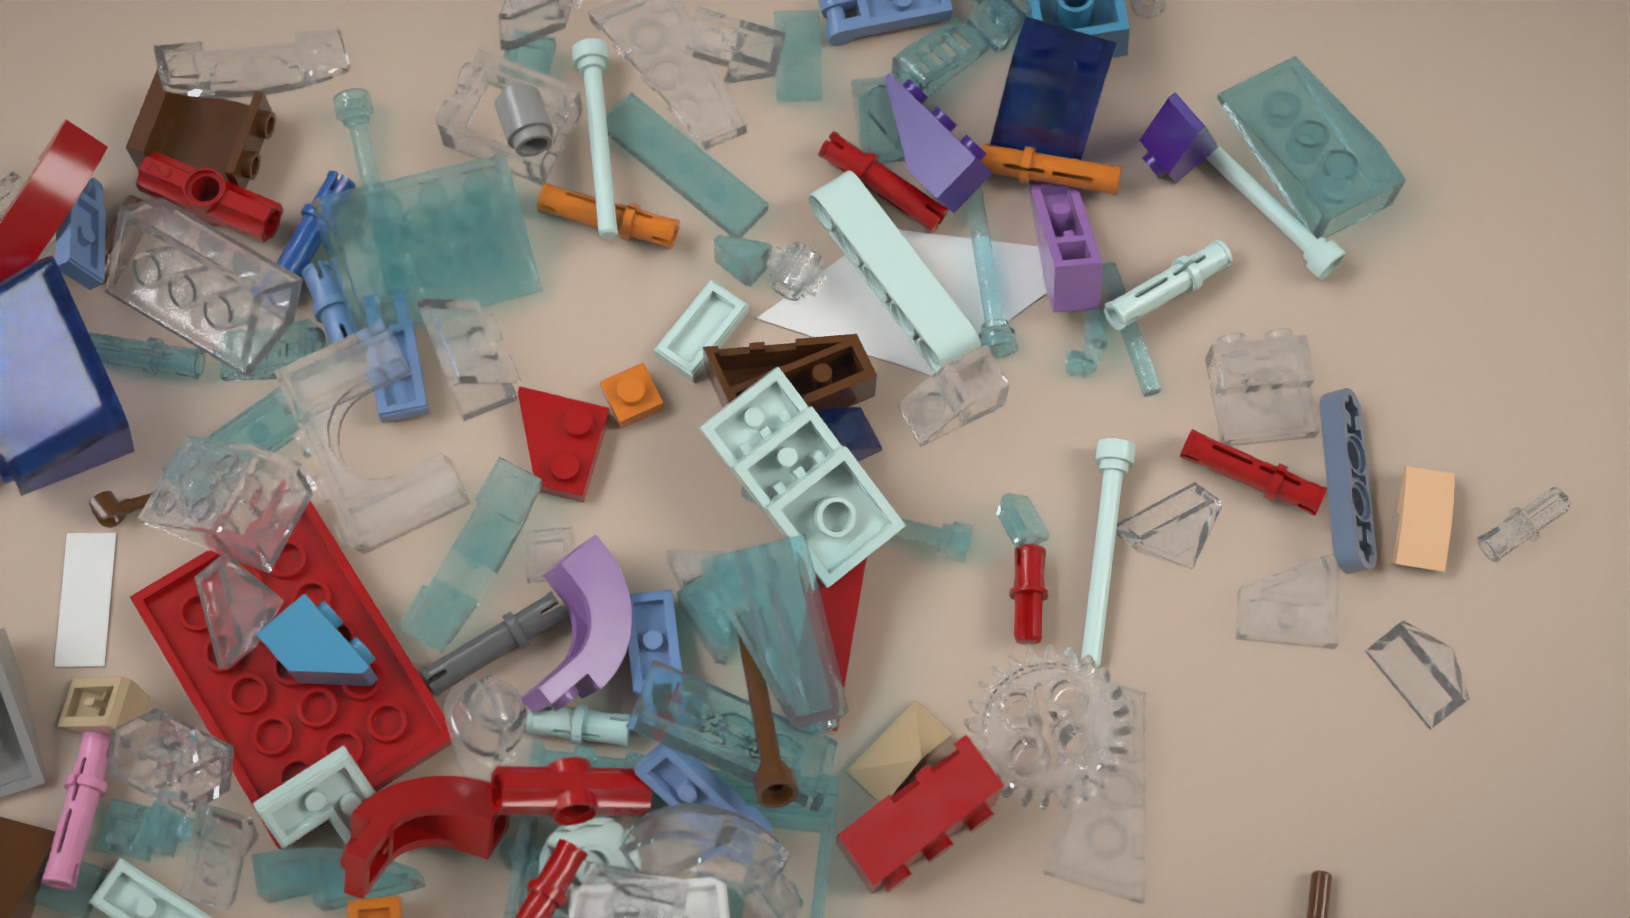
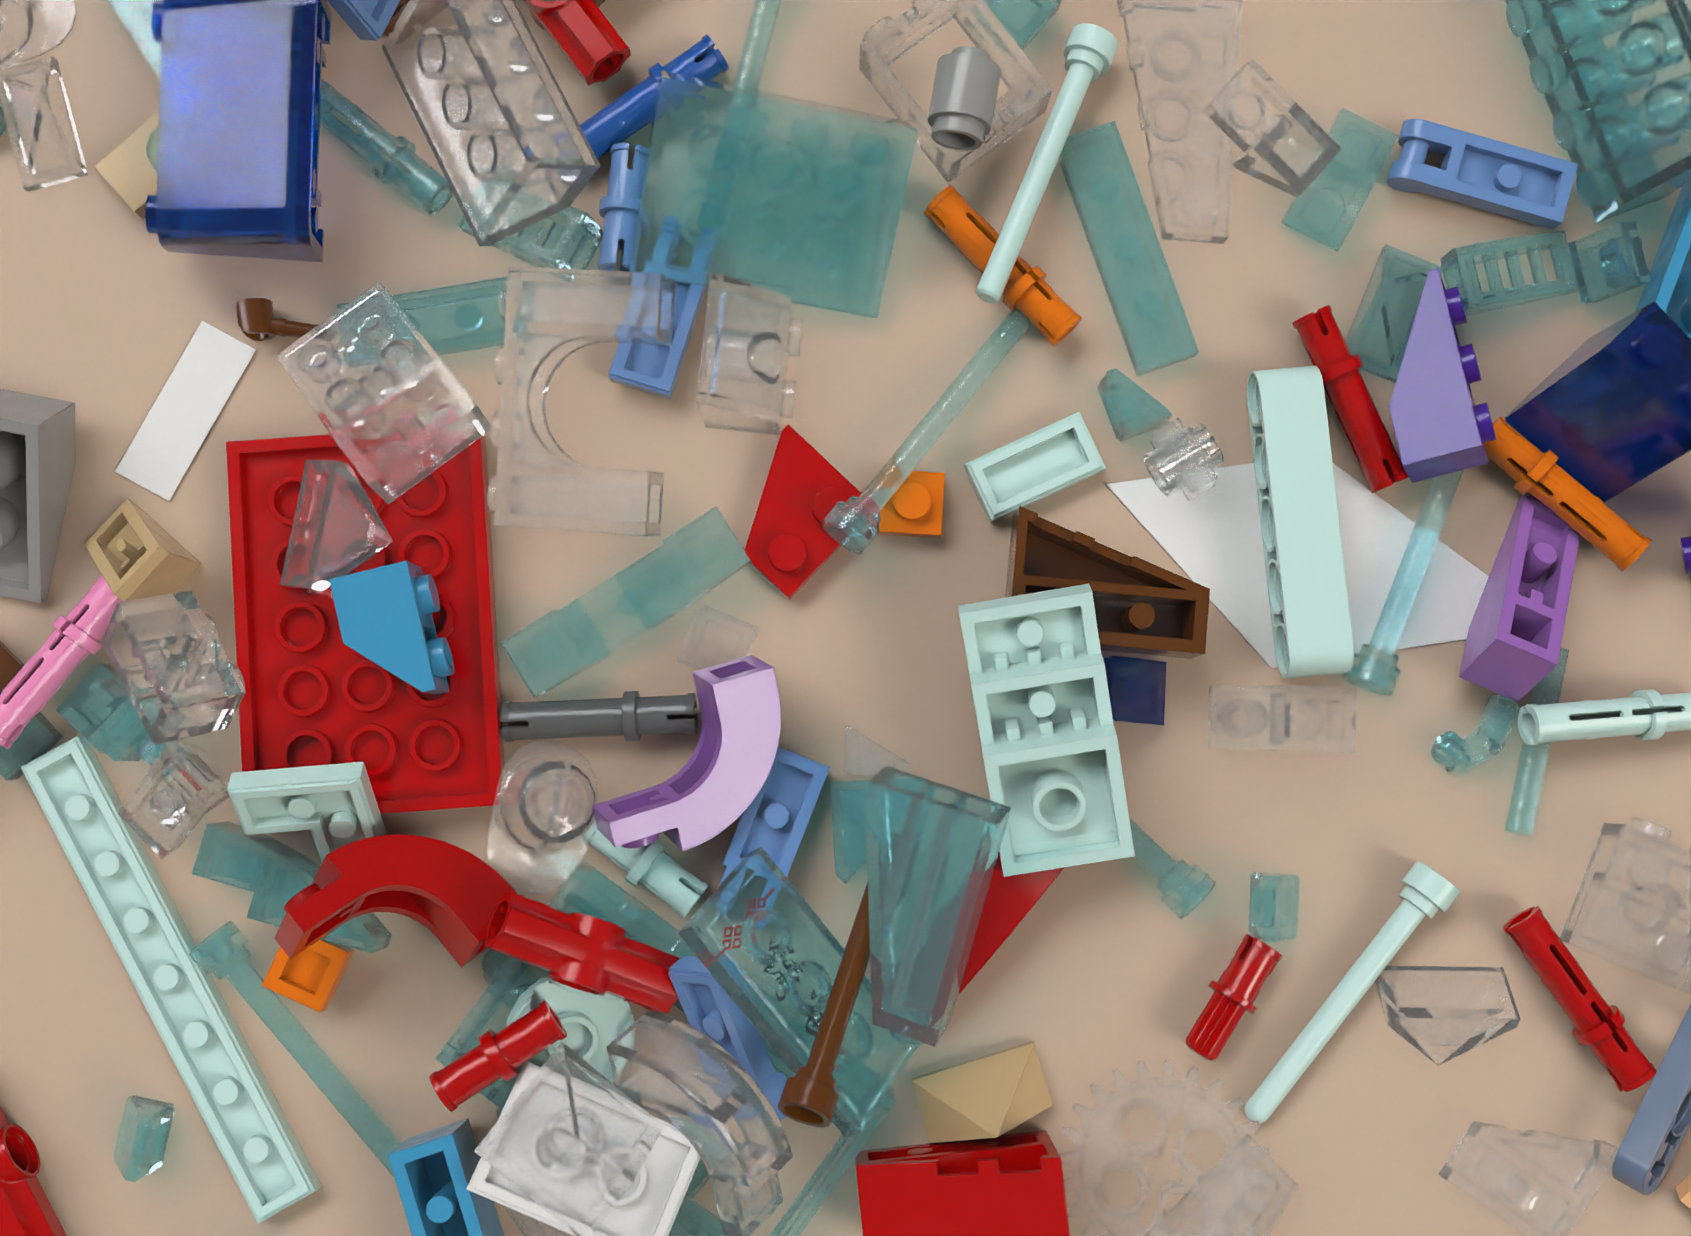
camera: 30 degrees right, 15 degrees up
(599, 419) = (855, 521): none -> clear light blue piece

